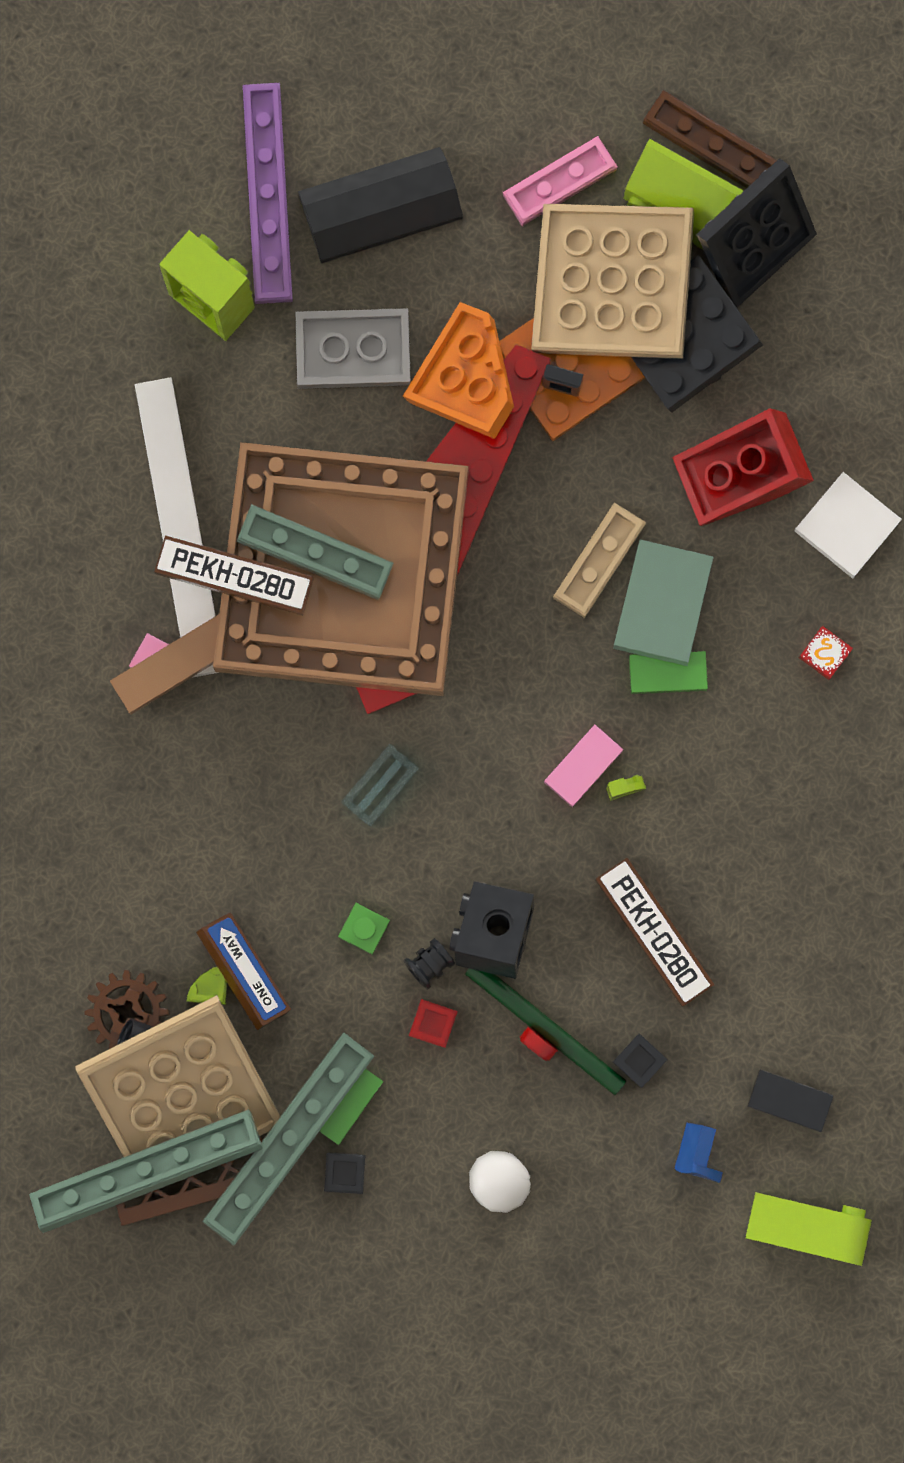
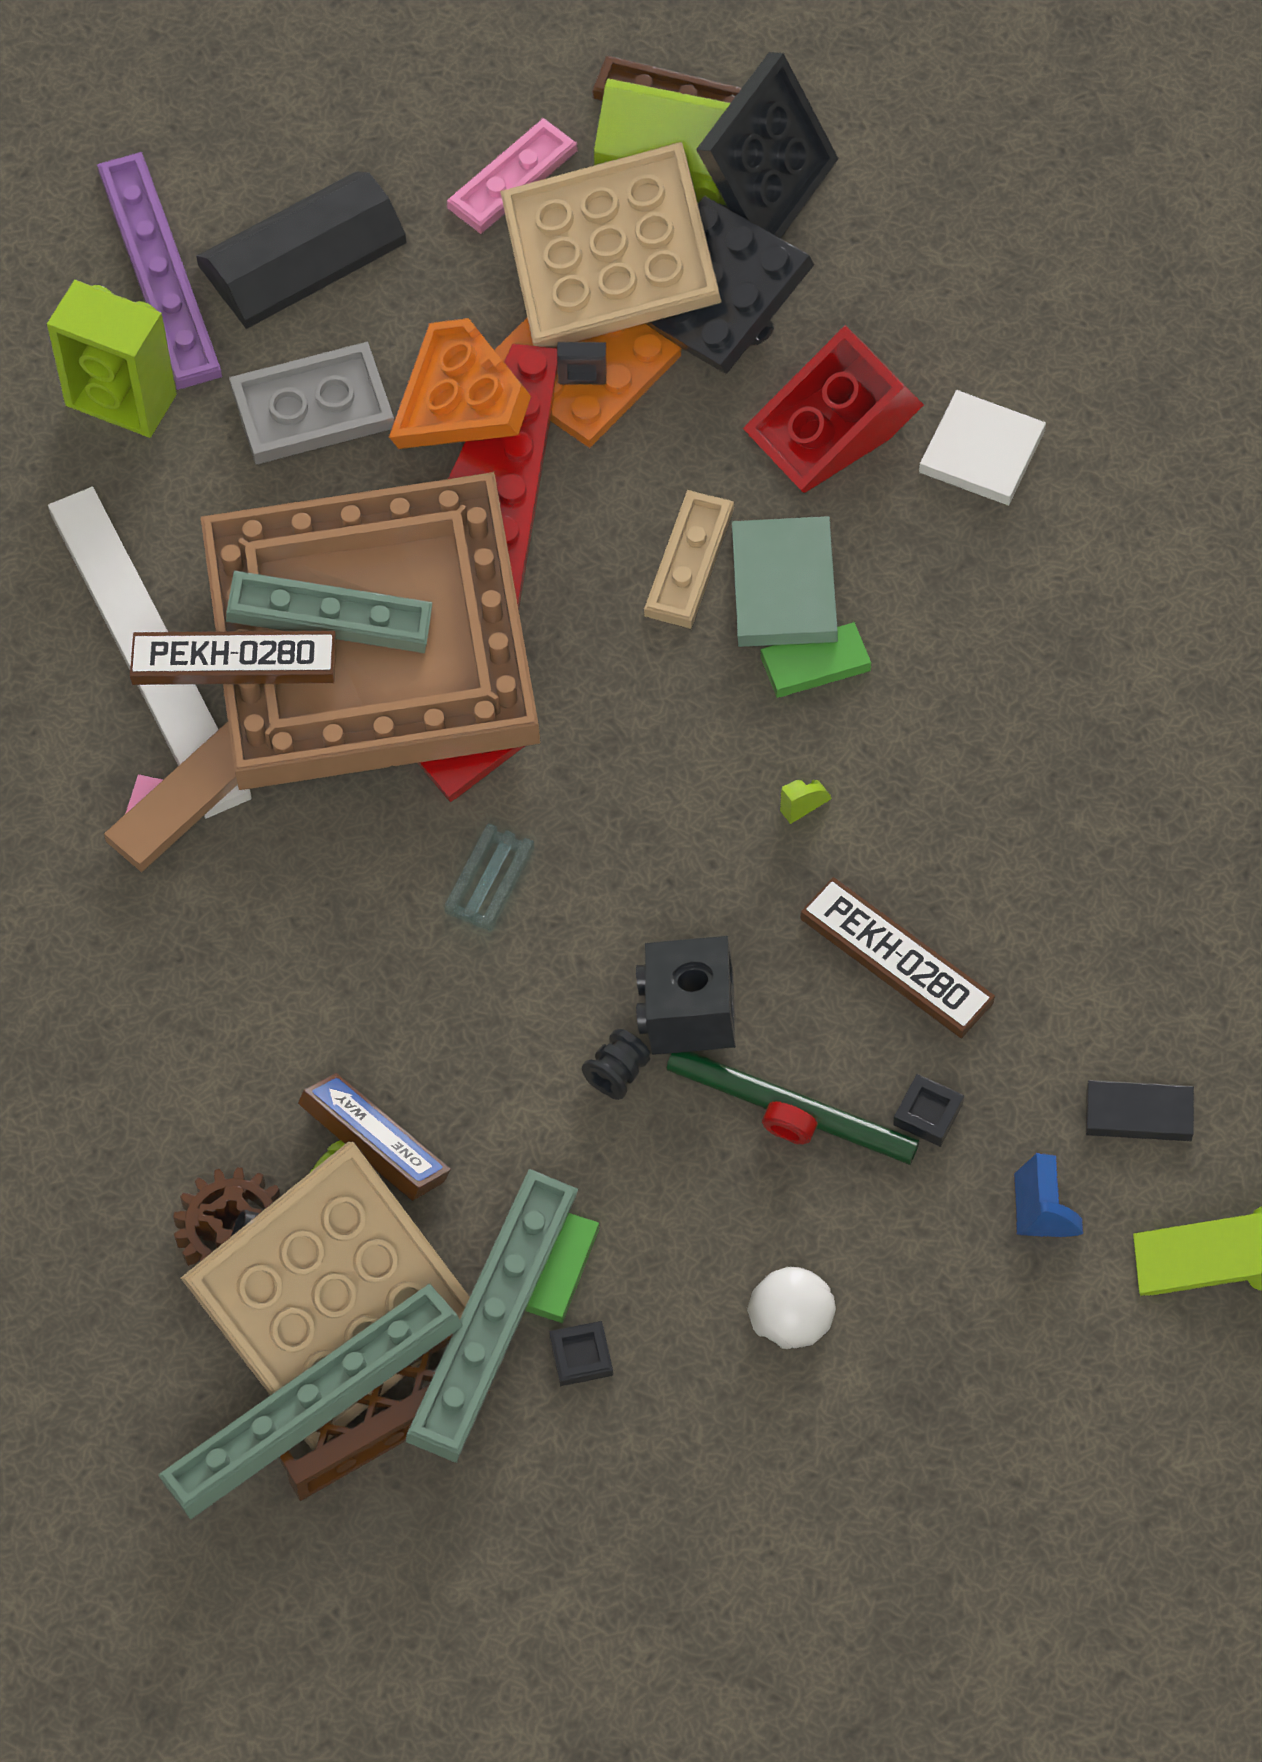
camera: 15 degrees left, 20 degrees down
(364, 928) = (518, 1049): bright green plate -> none
(433, 1023) = (643, 1139): red tile -> none
(583, 765) = (743, 790): bright pink tile -> none
(825, 653) = (1004, 590): tile -> none

